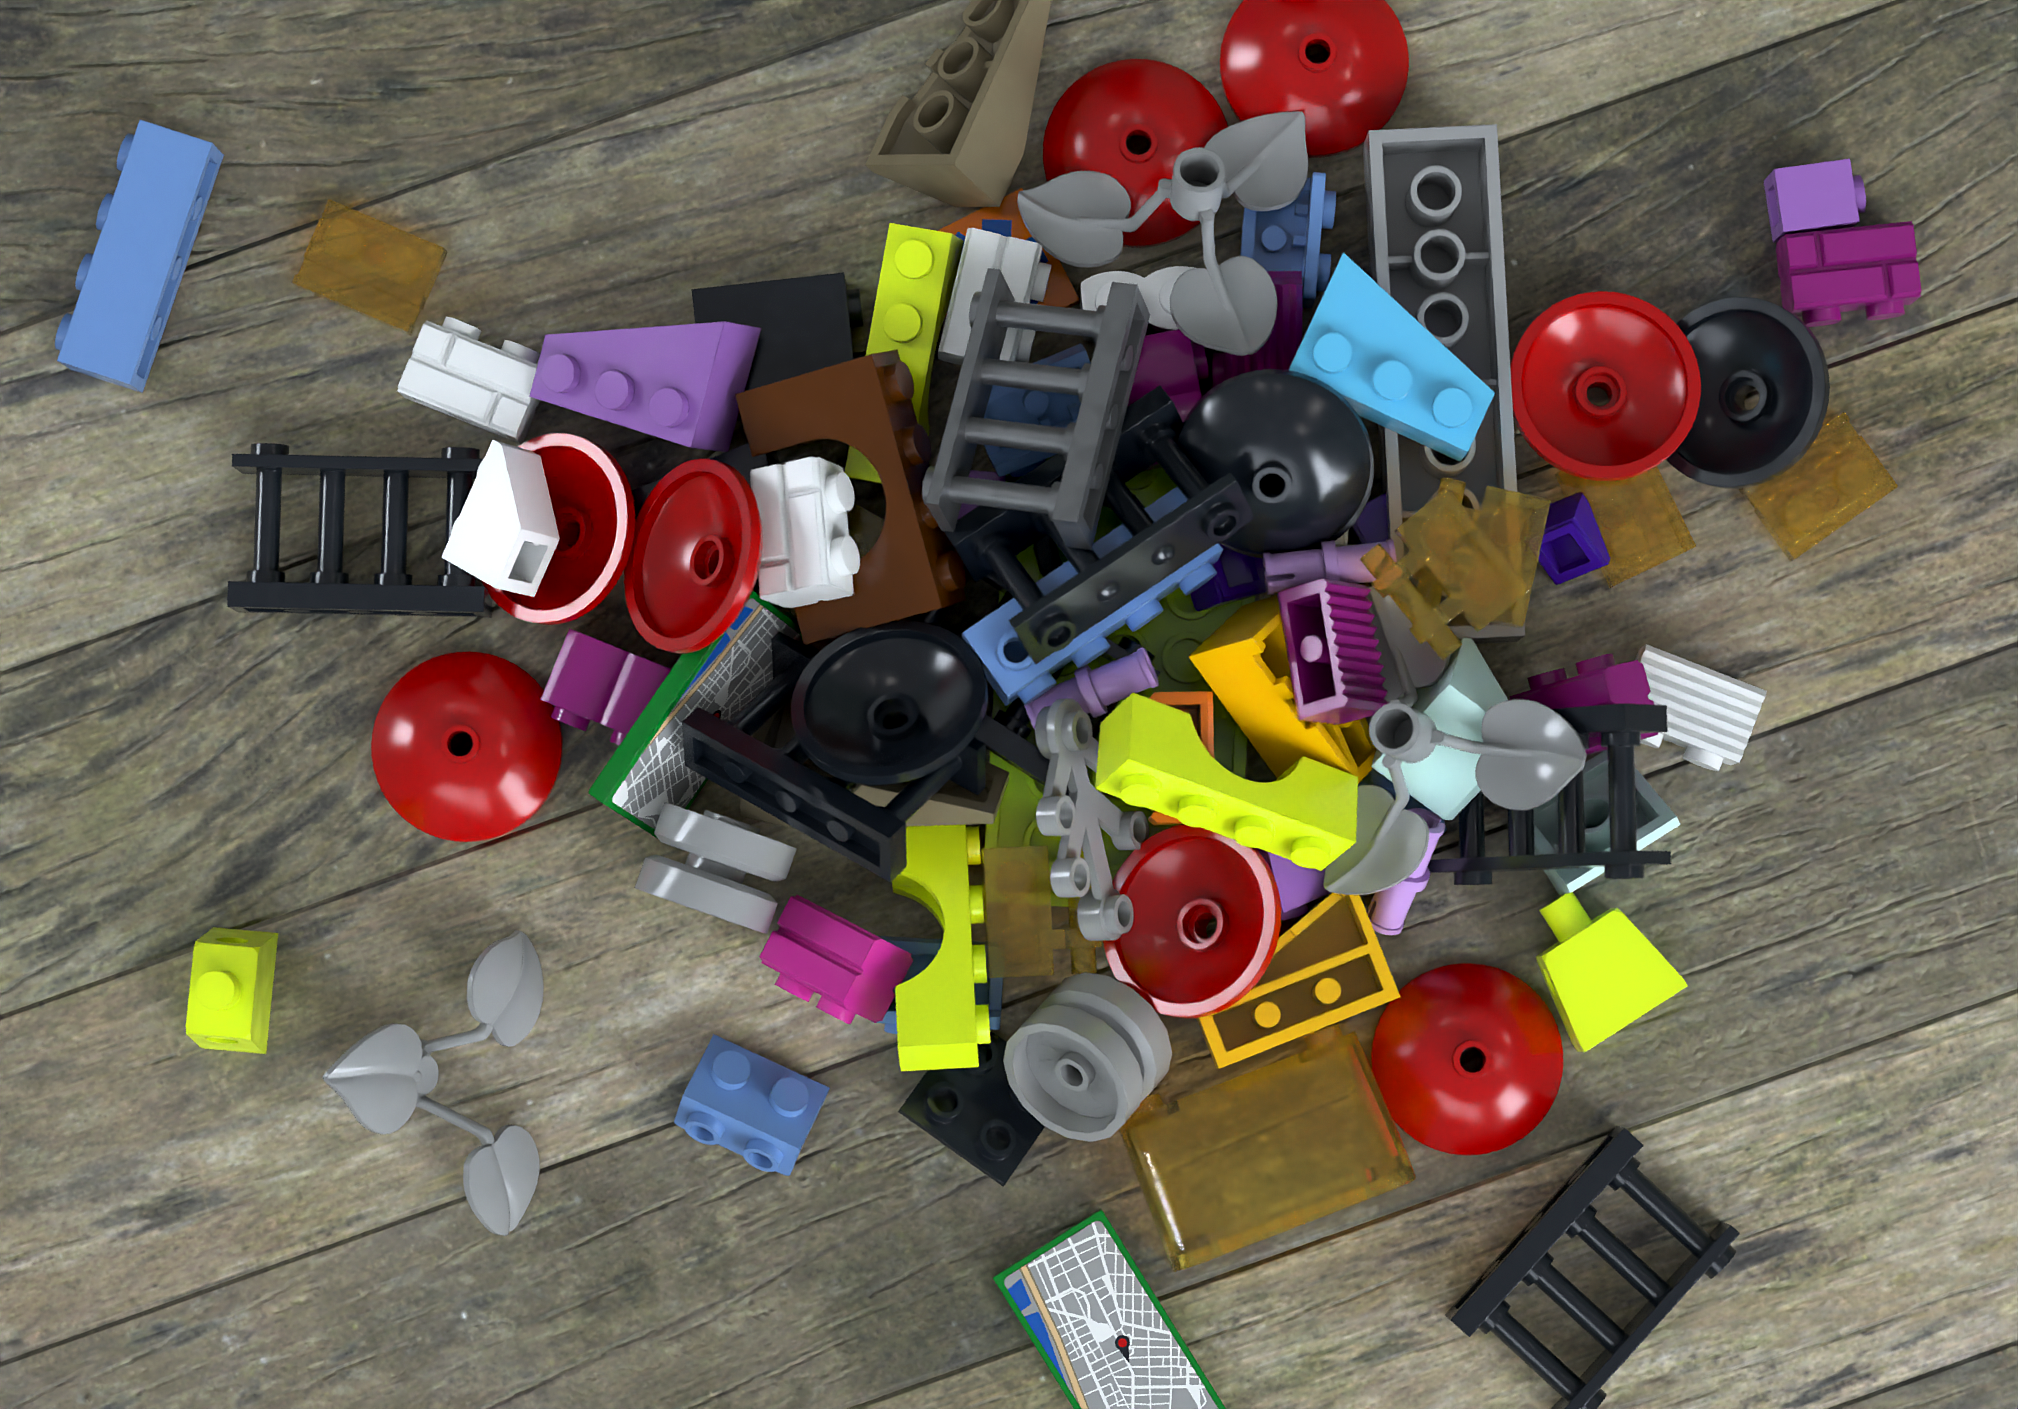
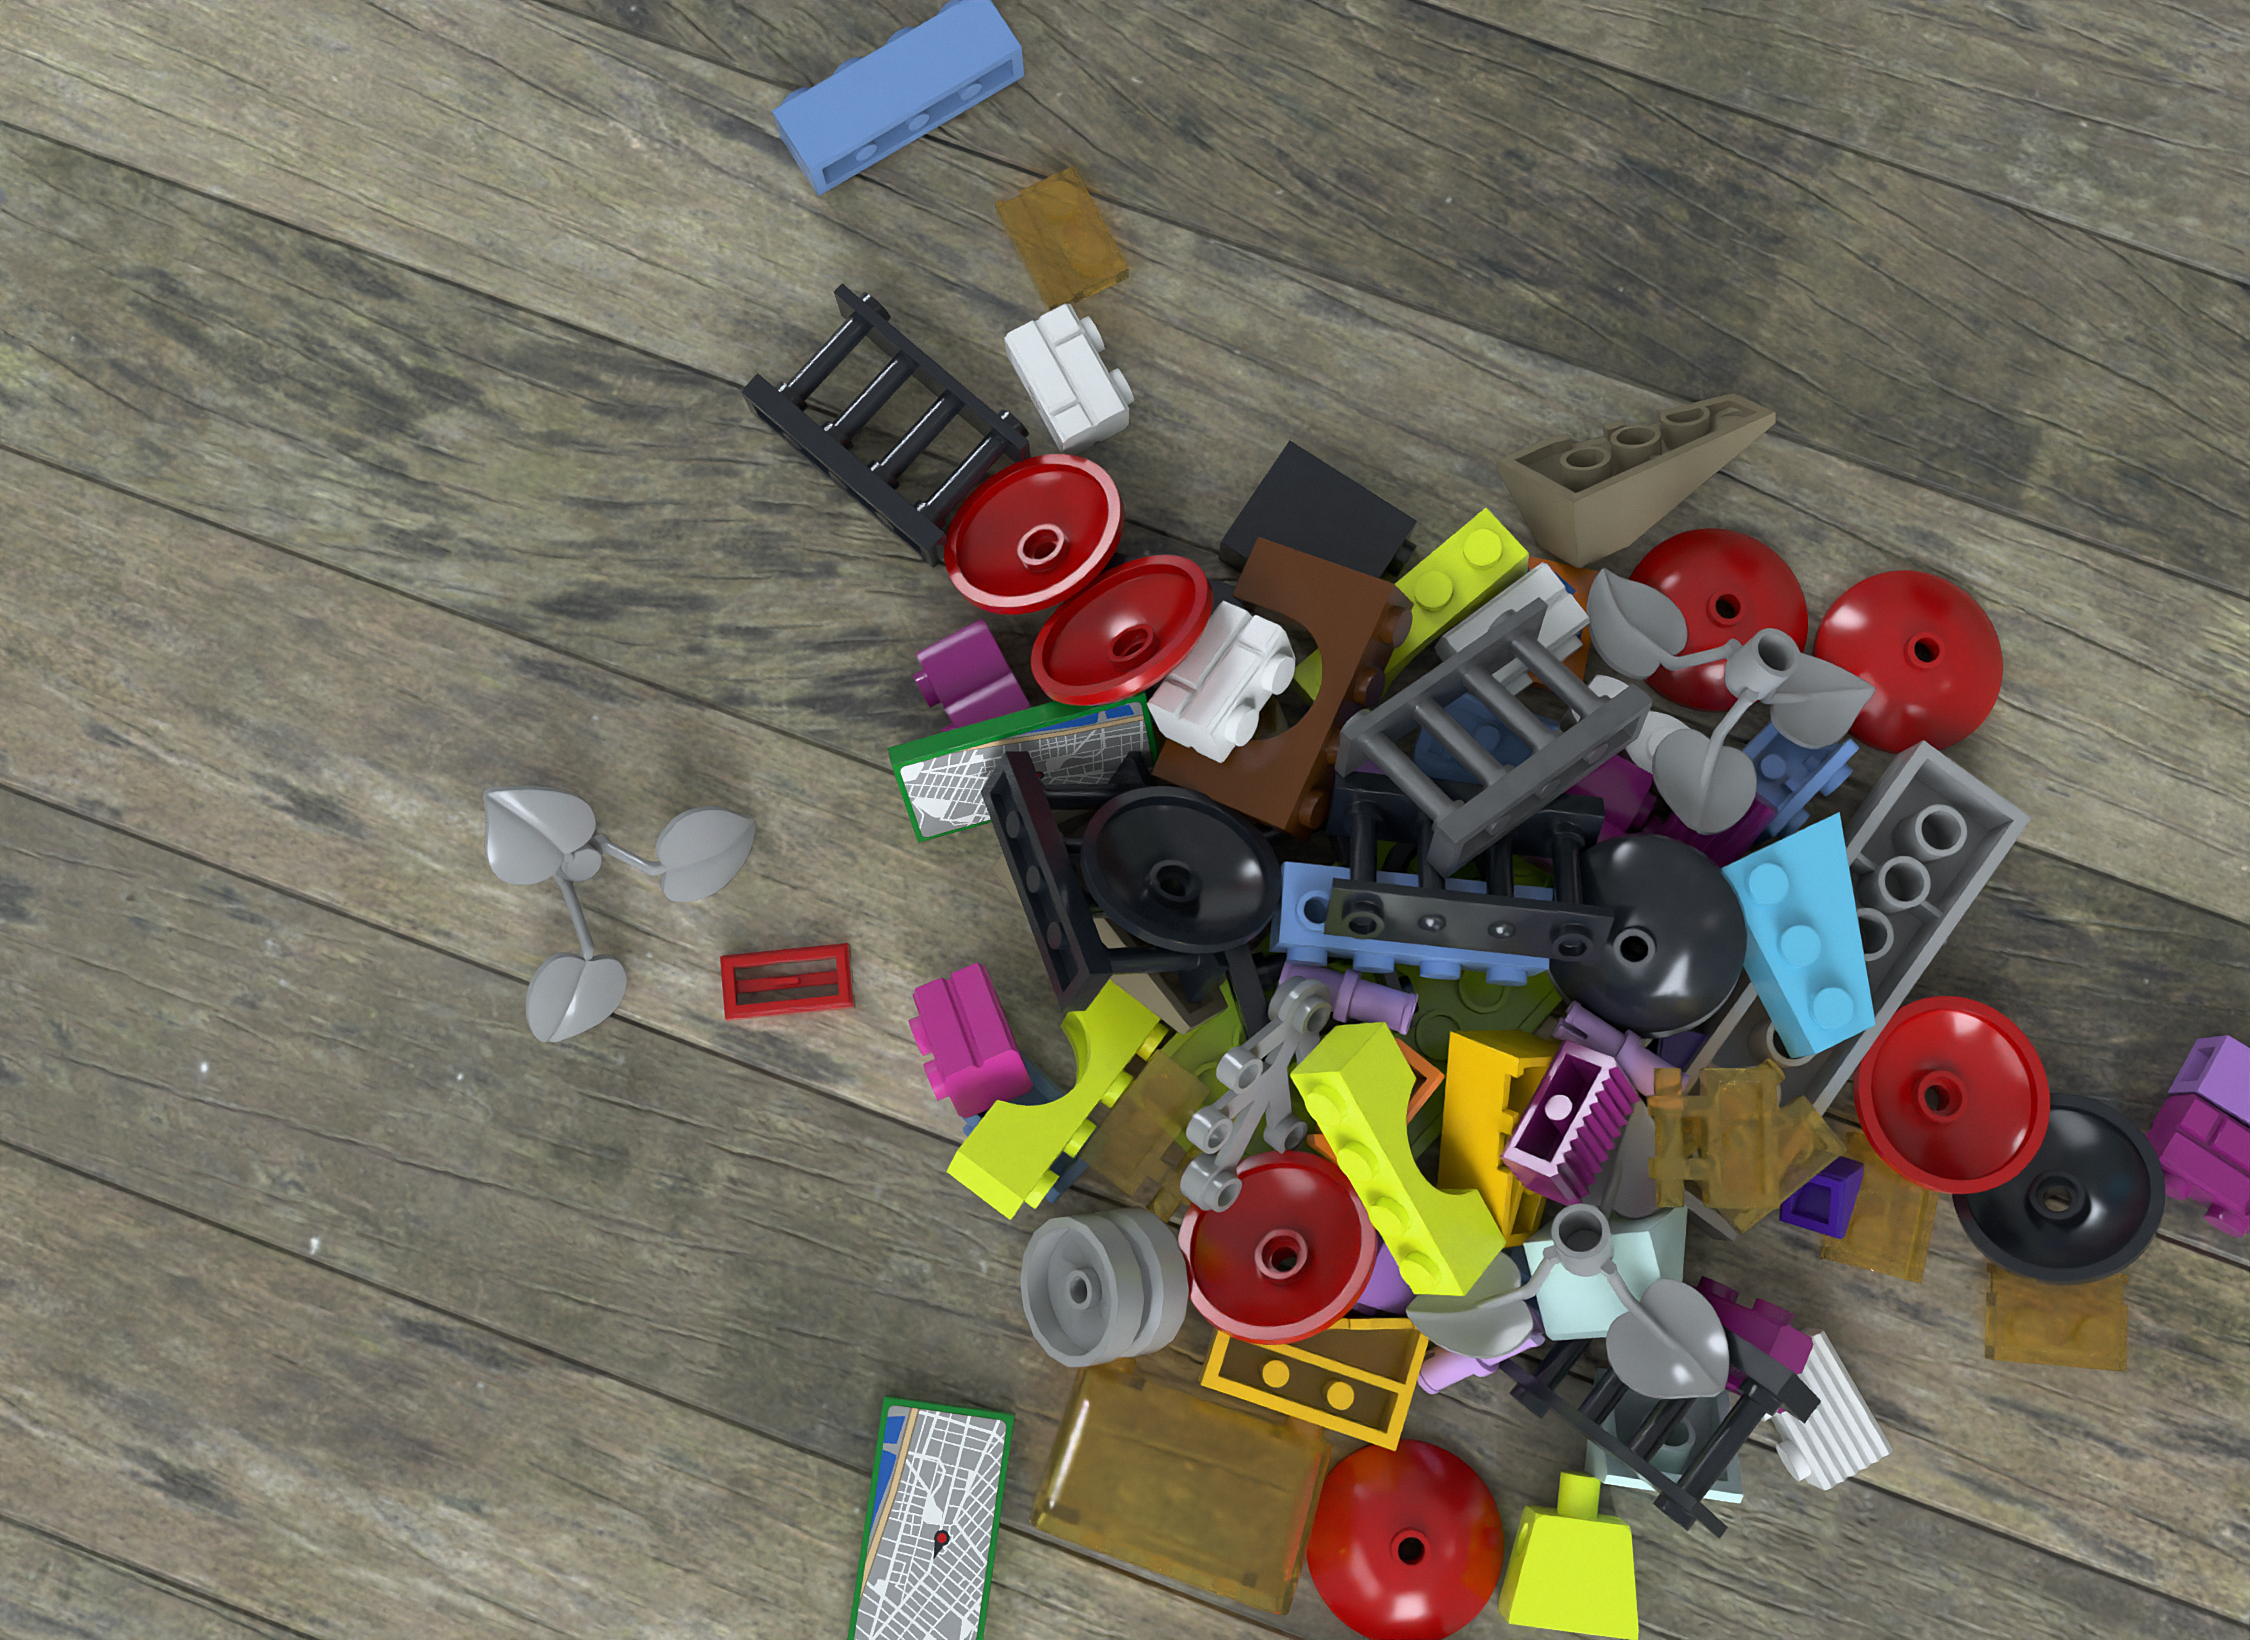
camera: 35 degrees right, 5 degrees down
(231, 990) = (497, 678): neon yellow torso -> none
(506, 522) = (1002, 496): white slope -> none
(511, 758) = (841, 687): red dish -> none
(653, 379) = (1208, 477): medium lavender wedge -> none
(693, 994) = (842, 977): none -> red tile
(716, 866) = (938, 890): light grey wheel -> none
(750, 1106) = (810, 1099): medium blue bracket -> none
(976, 1113) = (978, 1255): black hinge -> none
(1235, 580) = (1530, 1005): dark purple slope -> none

